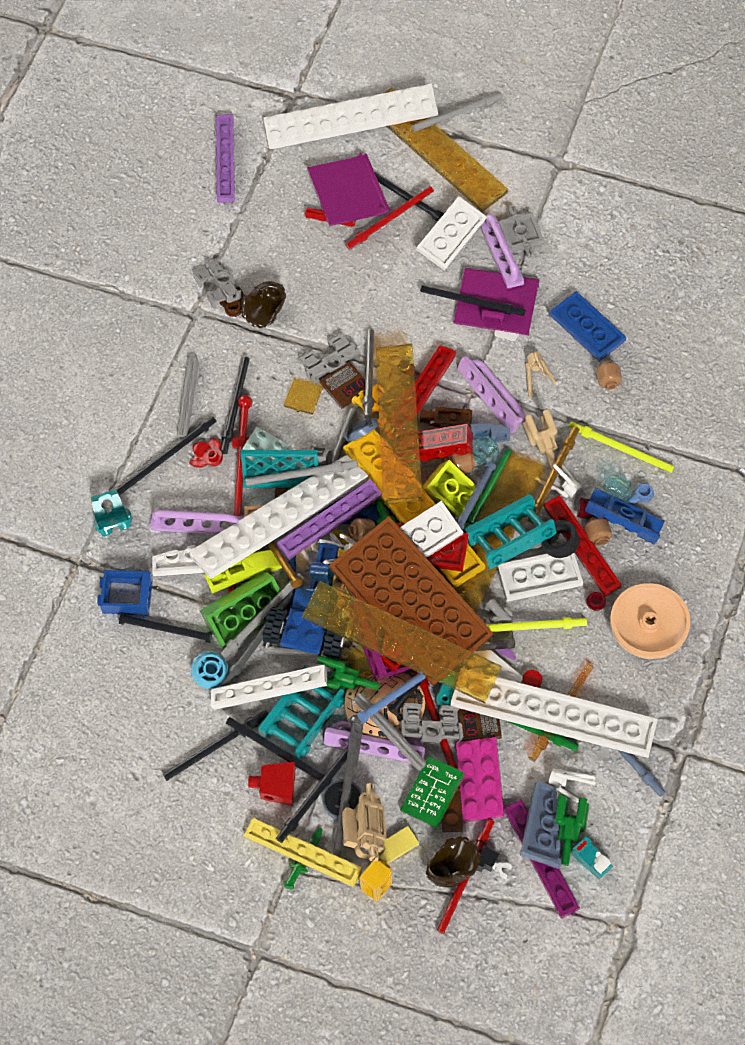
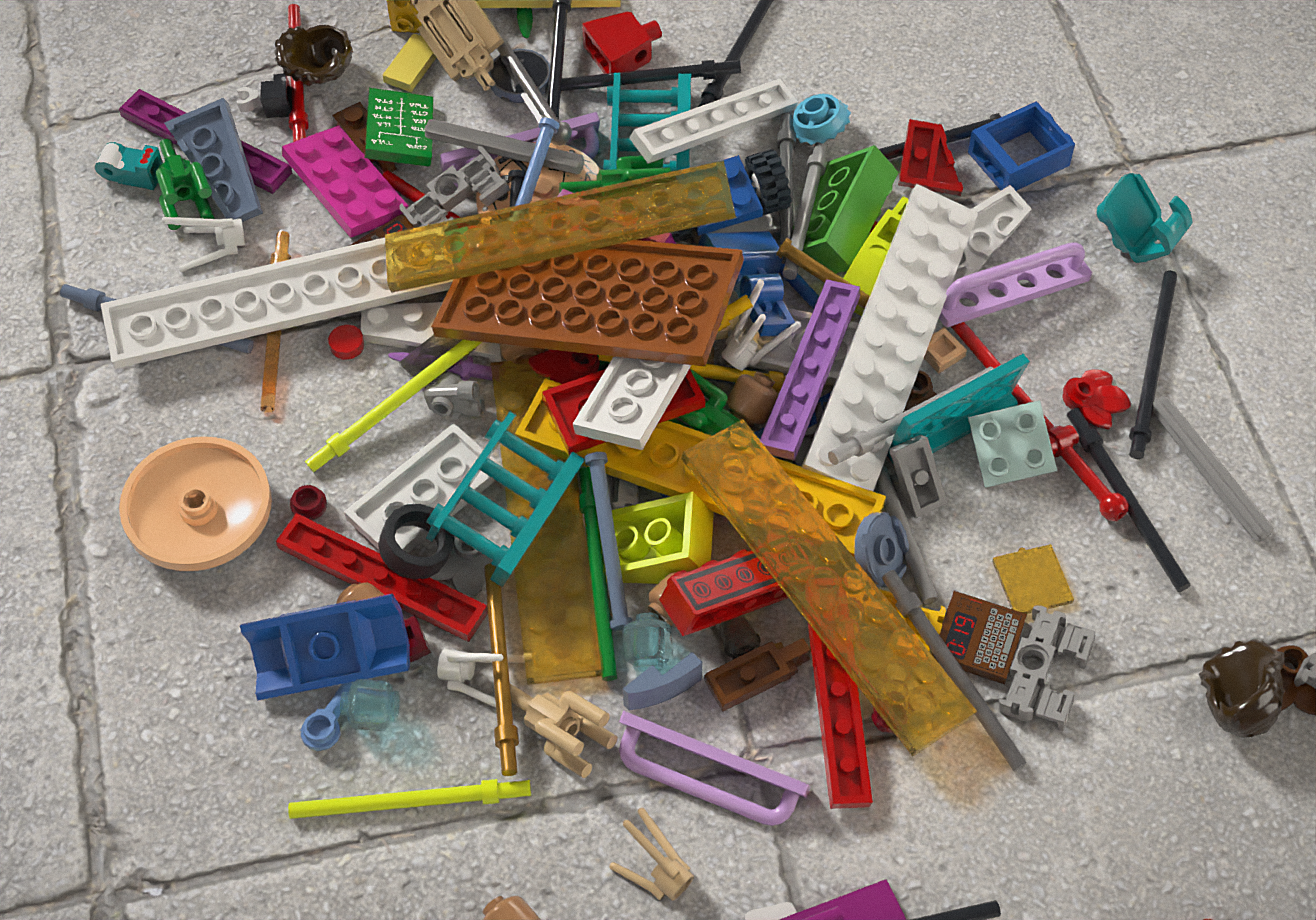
camera: 145 degrees right, 5 degrees down
(178, 611) = (928, 159): none -> red wing

